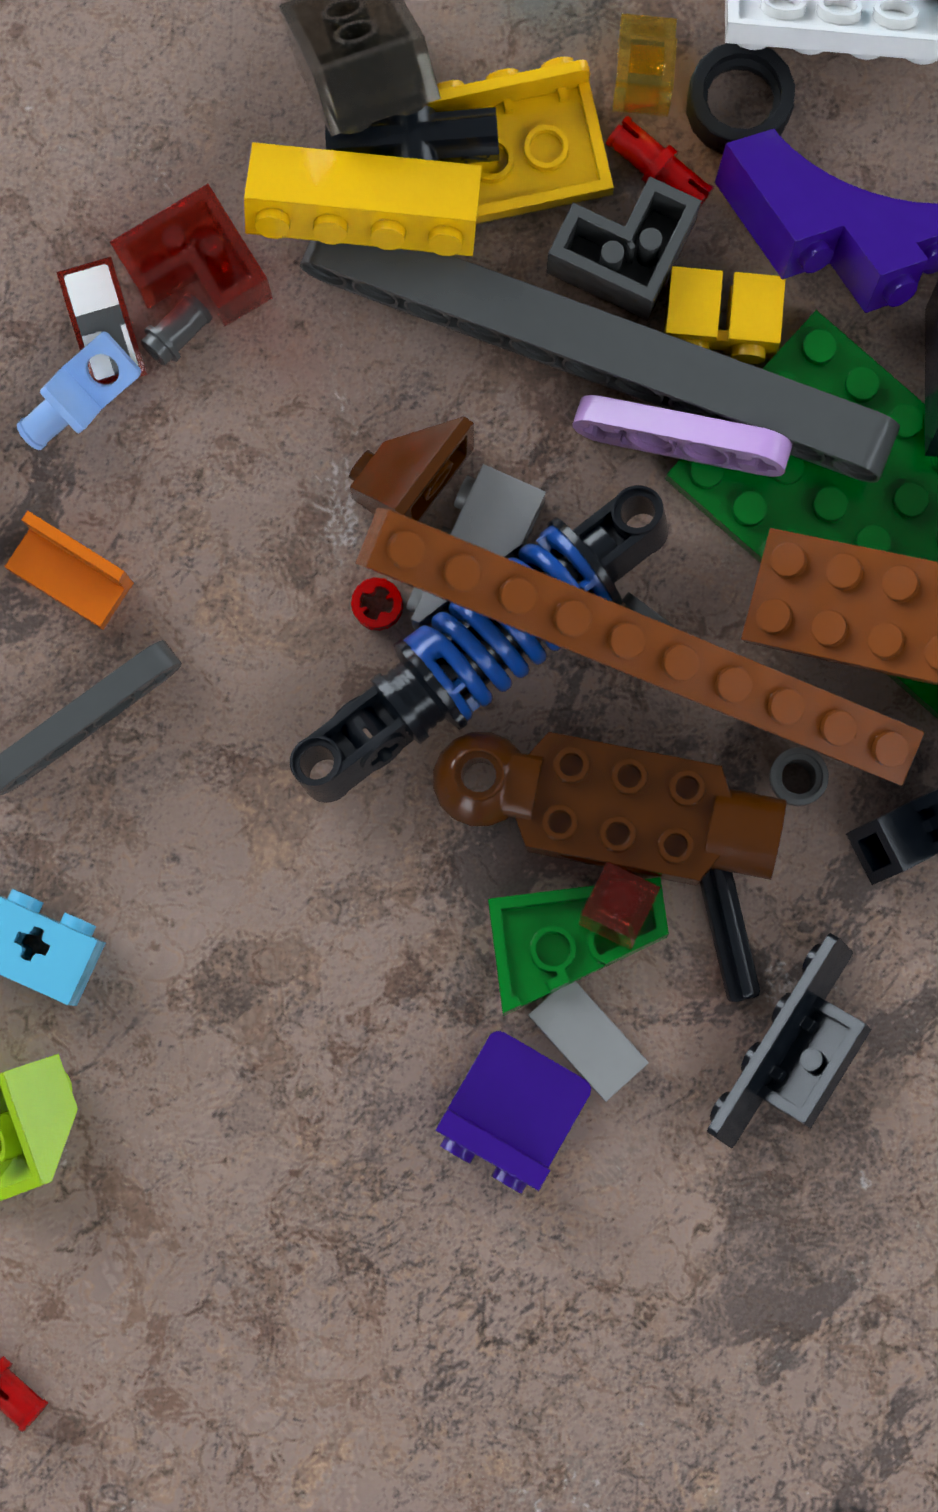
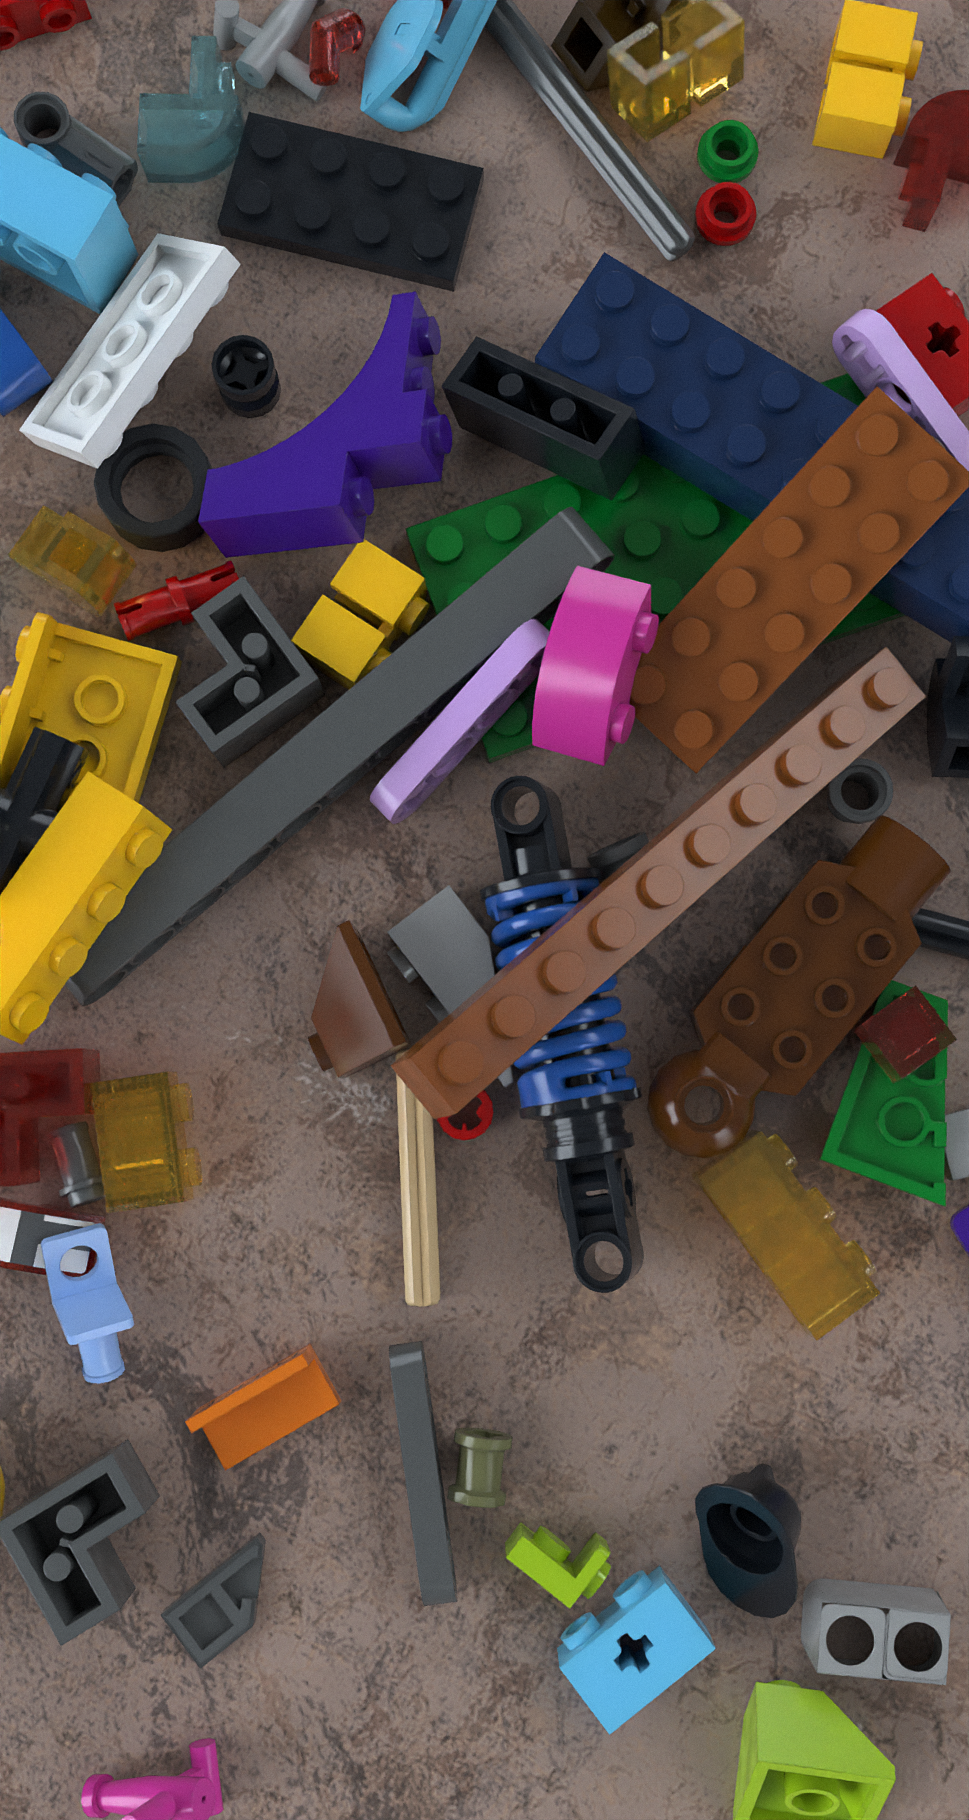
camera: 60 degrees left, 0 degrees up
(64, 846) = (546, 1562): none -> lime bracket
(108, 759) = (479, 1467): none -> olive bush
(164, 993) = (750, 1541): none -> black piece
(171, 1133) = (906, 1606): none -> light grey piece
(222, 369) = (145, 1141): none -> clear yellow brick
(286, 606) = (418, 1198): none -> tan axle
(417, 901) = (788, 1232): none -> clear yellow brick
(777, 505) = (592, 665): none -> dark pink brick
(875, 107) = (242, 362): none -> black wheel

